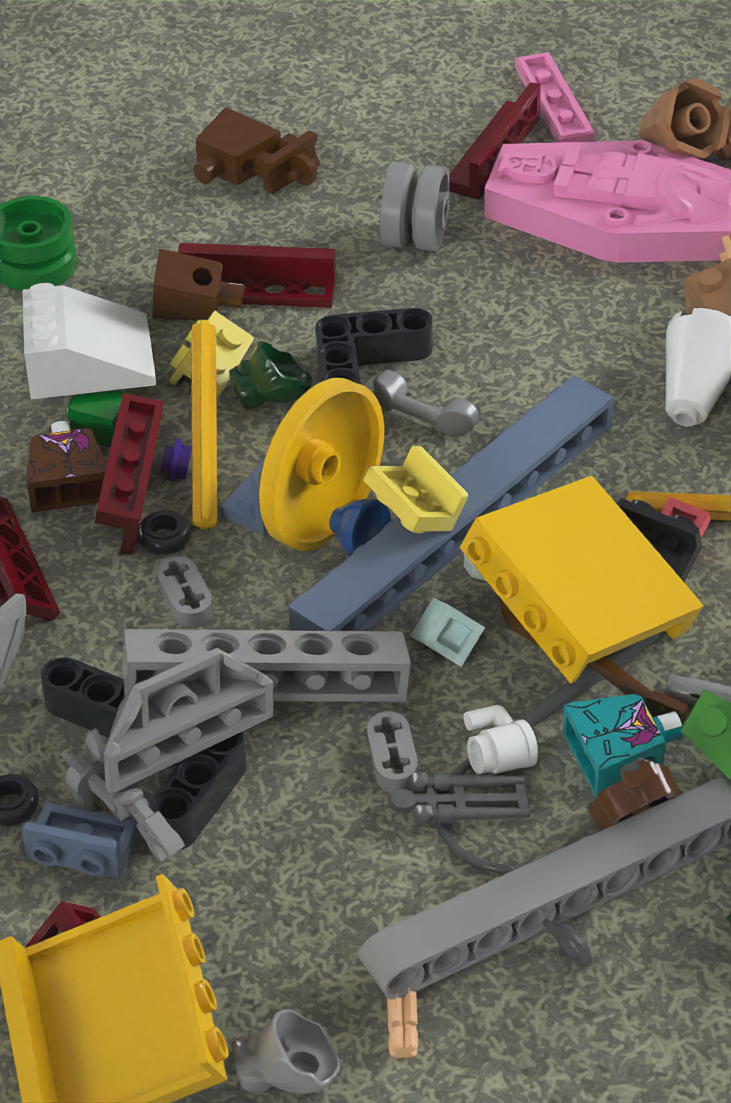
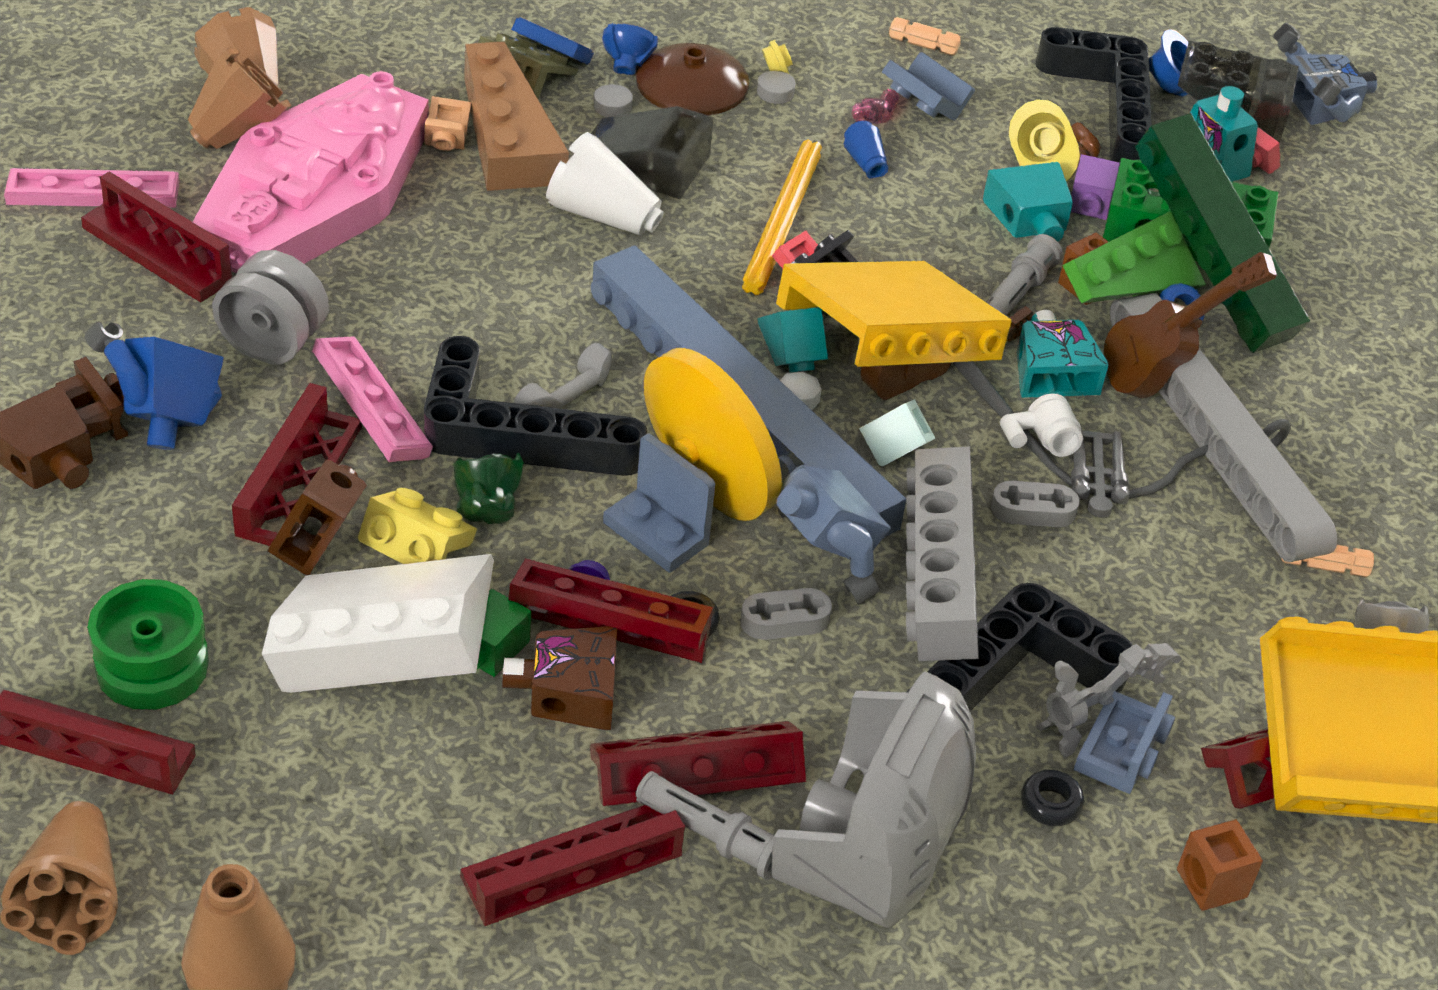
camera: 85 degrees left, 0 degrees up
(183, 714) = (1044, 609): light grey wedge -> none
(204, 426) = (551, 540): yellow axle -> none
(264, 566) = (835, 519): none -> sand blue torso
(300, 177) = (160, 380): none -> blue torso
(363, 293) = (372, 399): none -> bright pink tile
(418, 492) = (767, 380): light yellow bracket -> none

